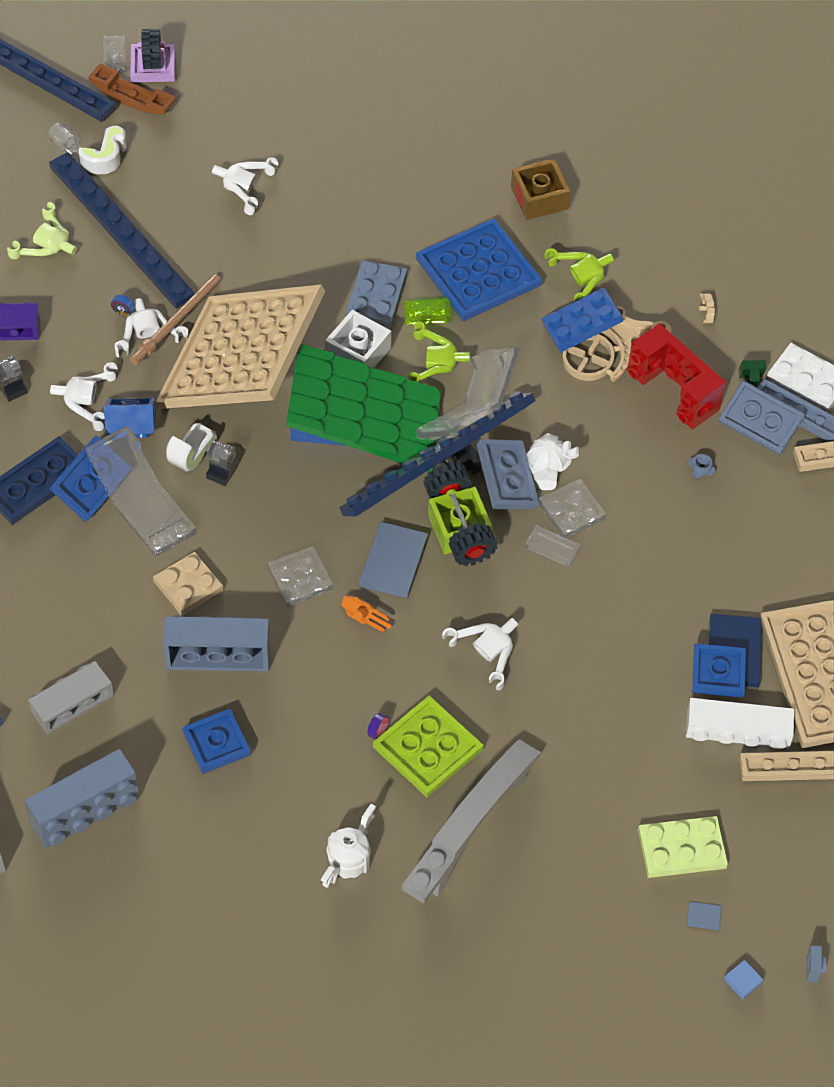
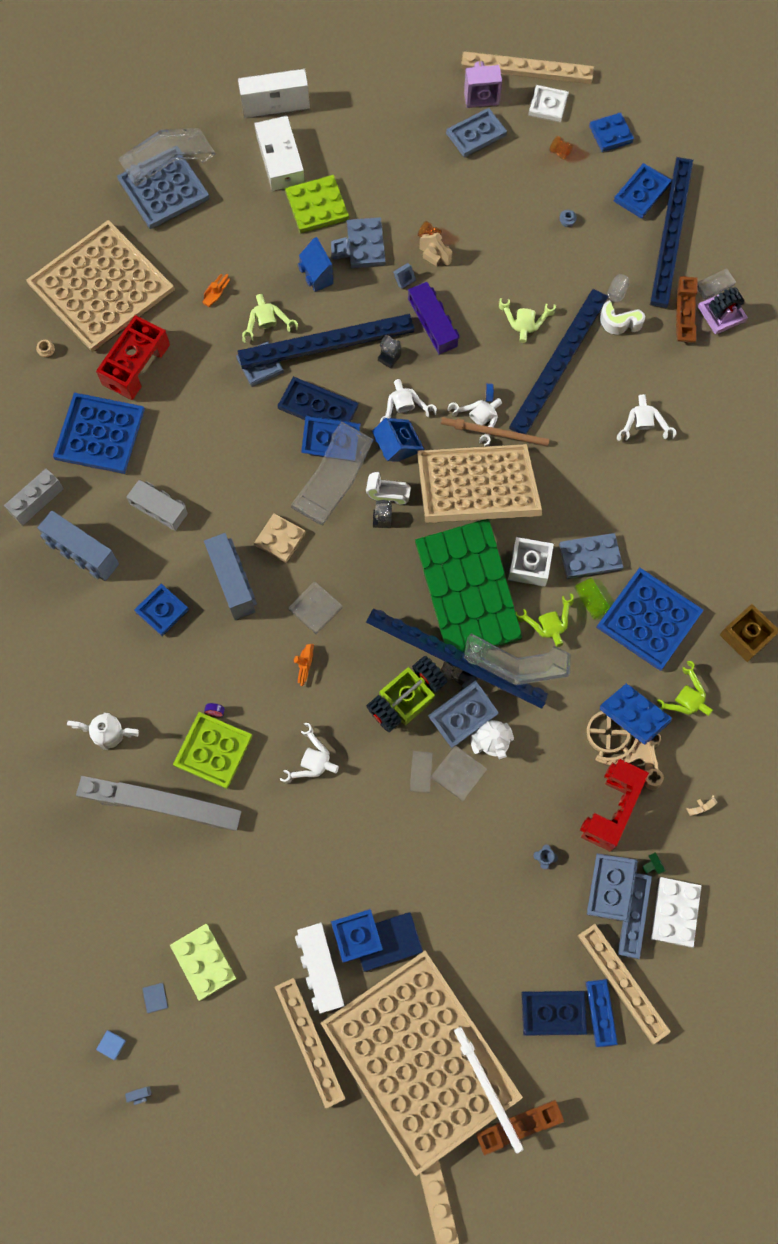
camera: 70 degrees right, 15 degrees up
(393, 560) = (359, 664): sand blue tile -> none

